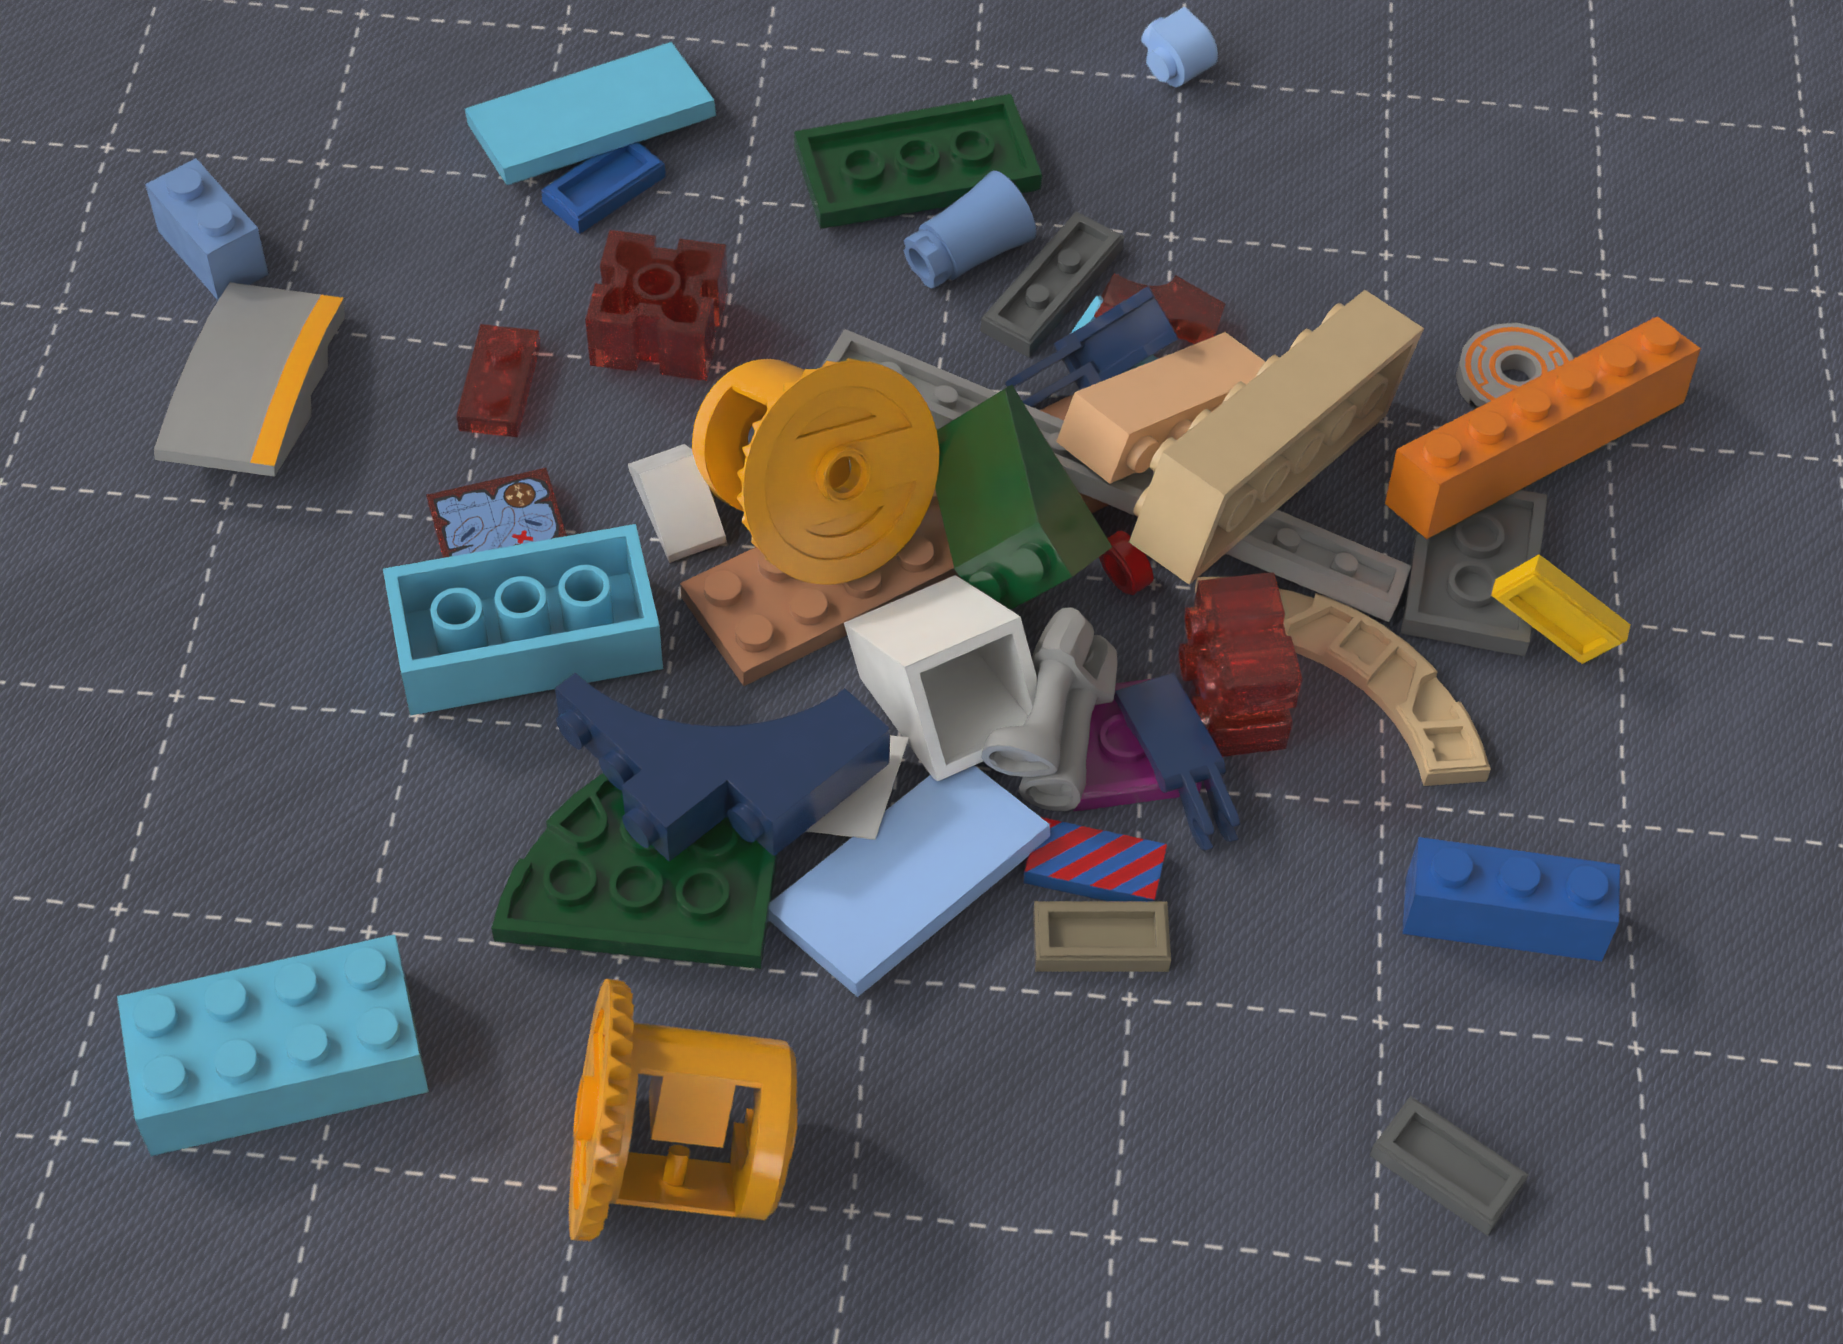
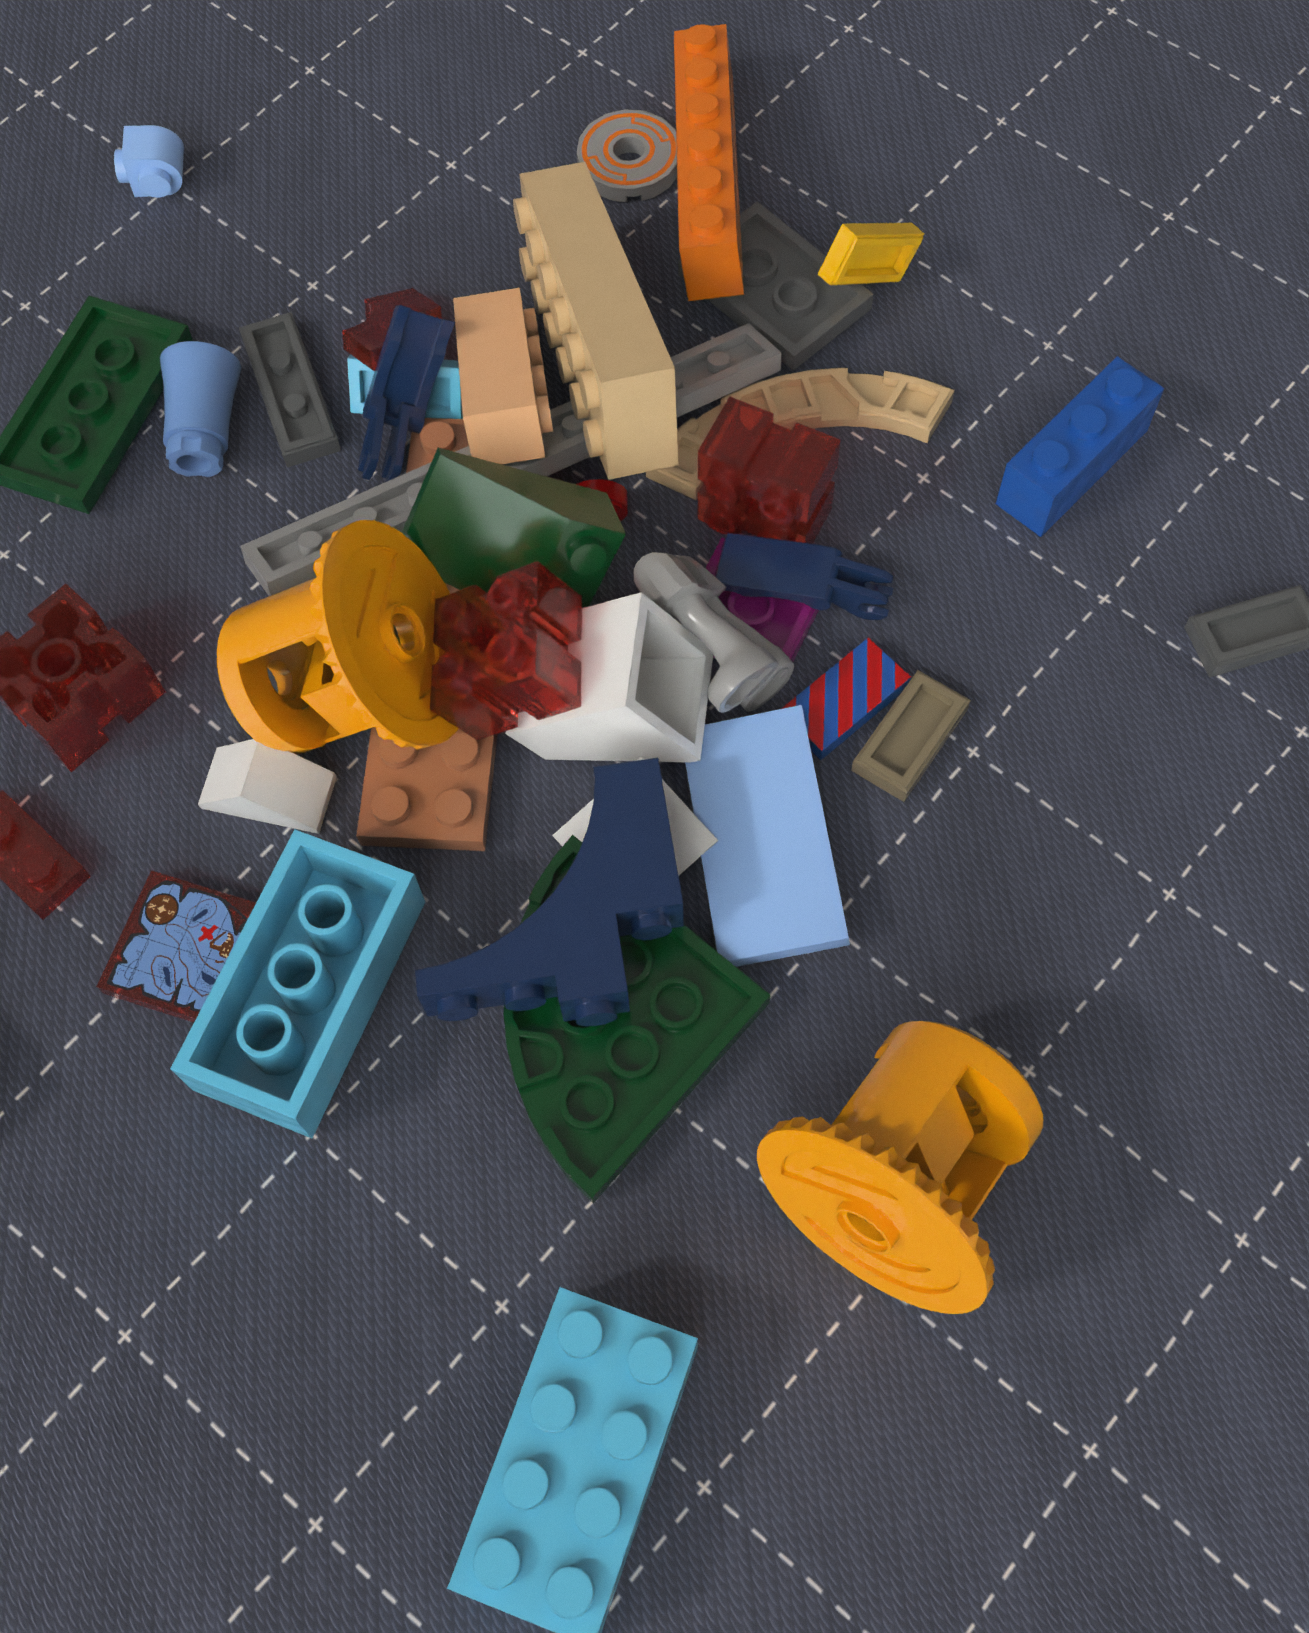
camera: 50 degrees left, 10 degrees up
(899, 564) = (506, 652): none -> clear red brick

